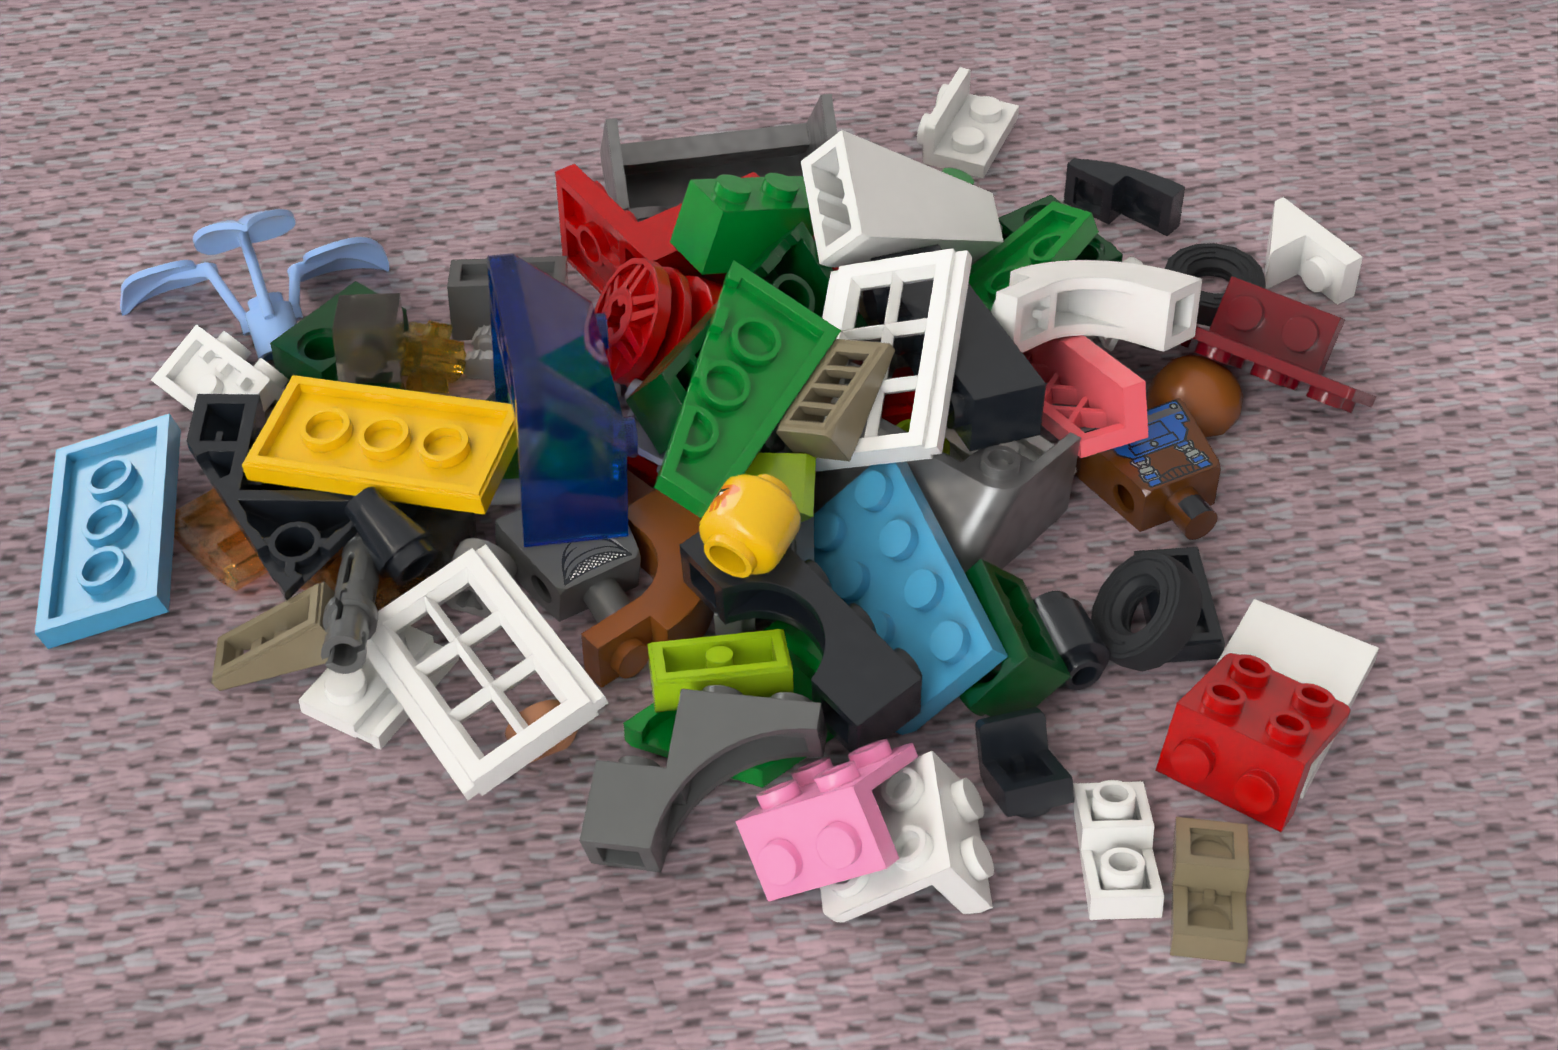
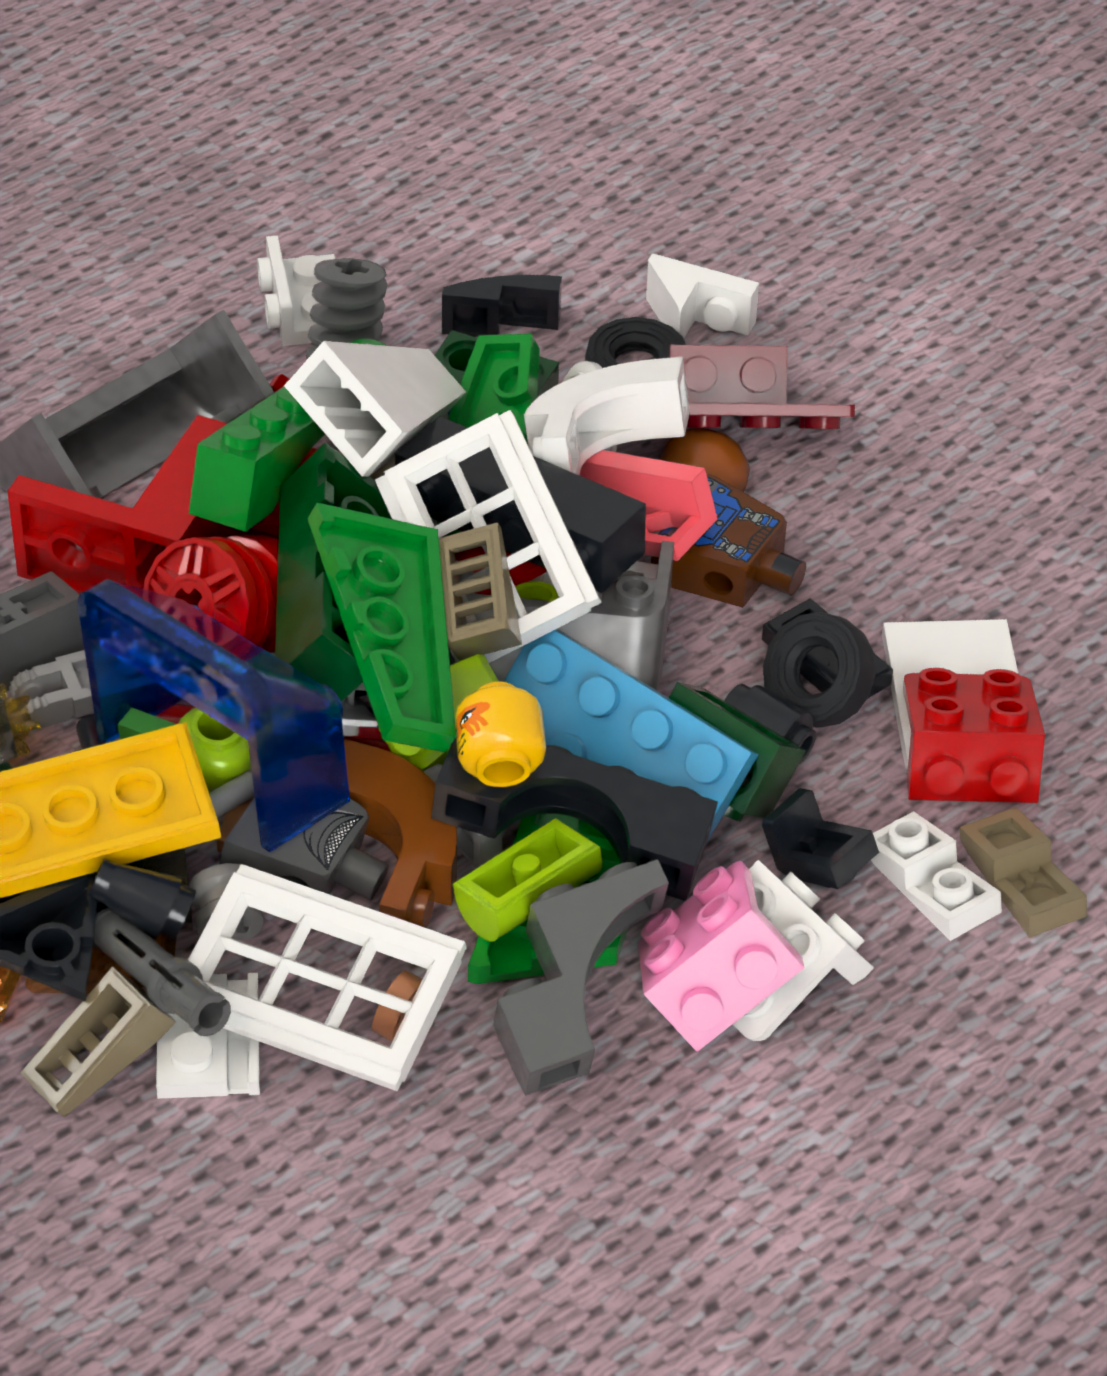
camera: 35 degrees left, 0 degrees up
(973, 138) = (348, 301): none -> dark grey piece

